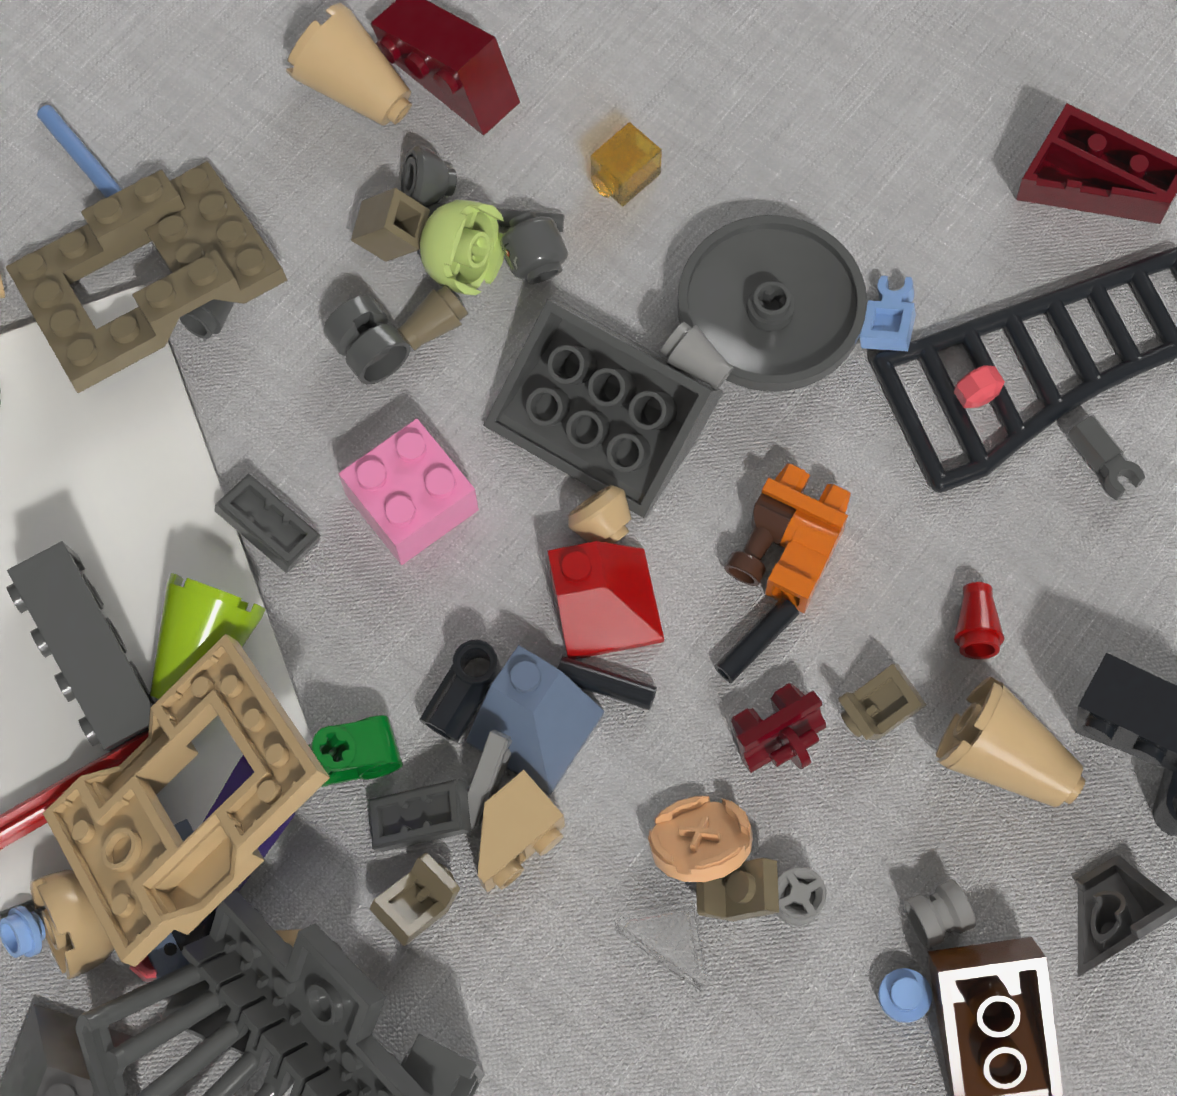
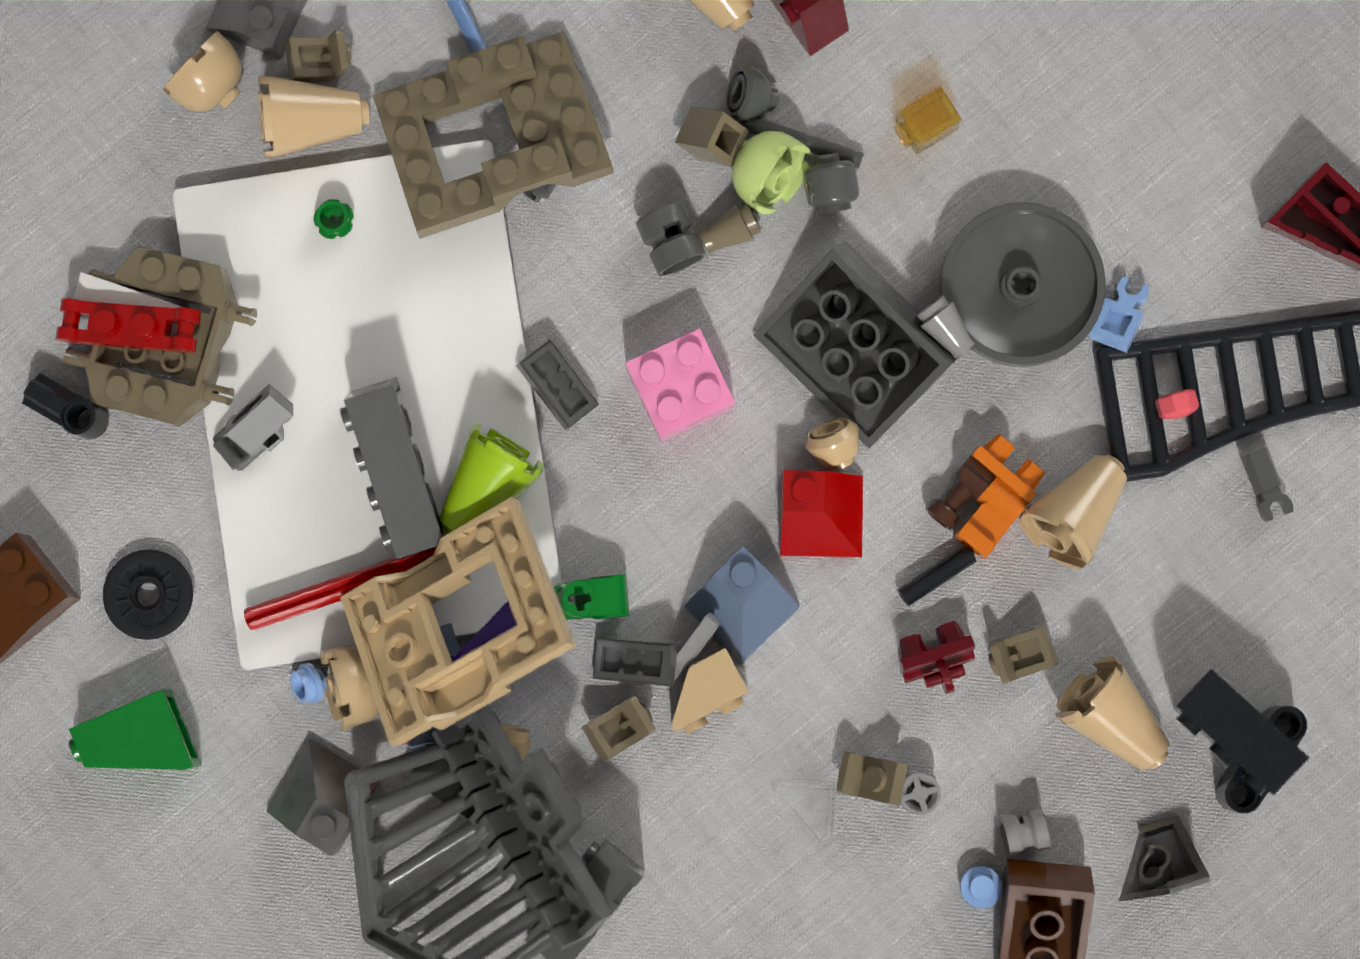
camera: 10 degrees right, 15 degrees up
(460, 694) = (685, 570): black piece -> none
(608, 683) = (806, 584): black piece -> none
(700, 839) = (852, 732): light nougat tile -> none
(896, 531) = (1076, 511): none -> tan cone
(978, 623) = (1120, 605): red cone -> none

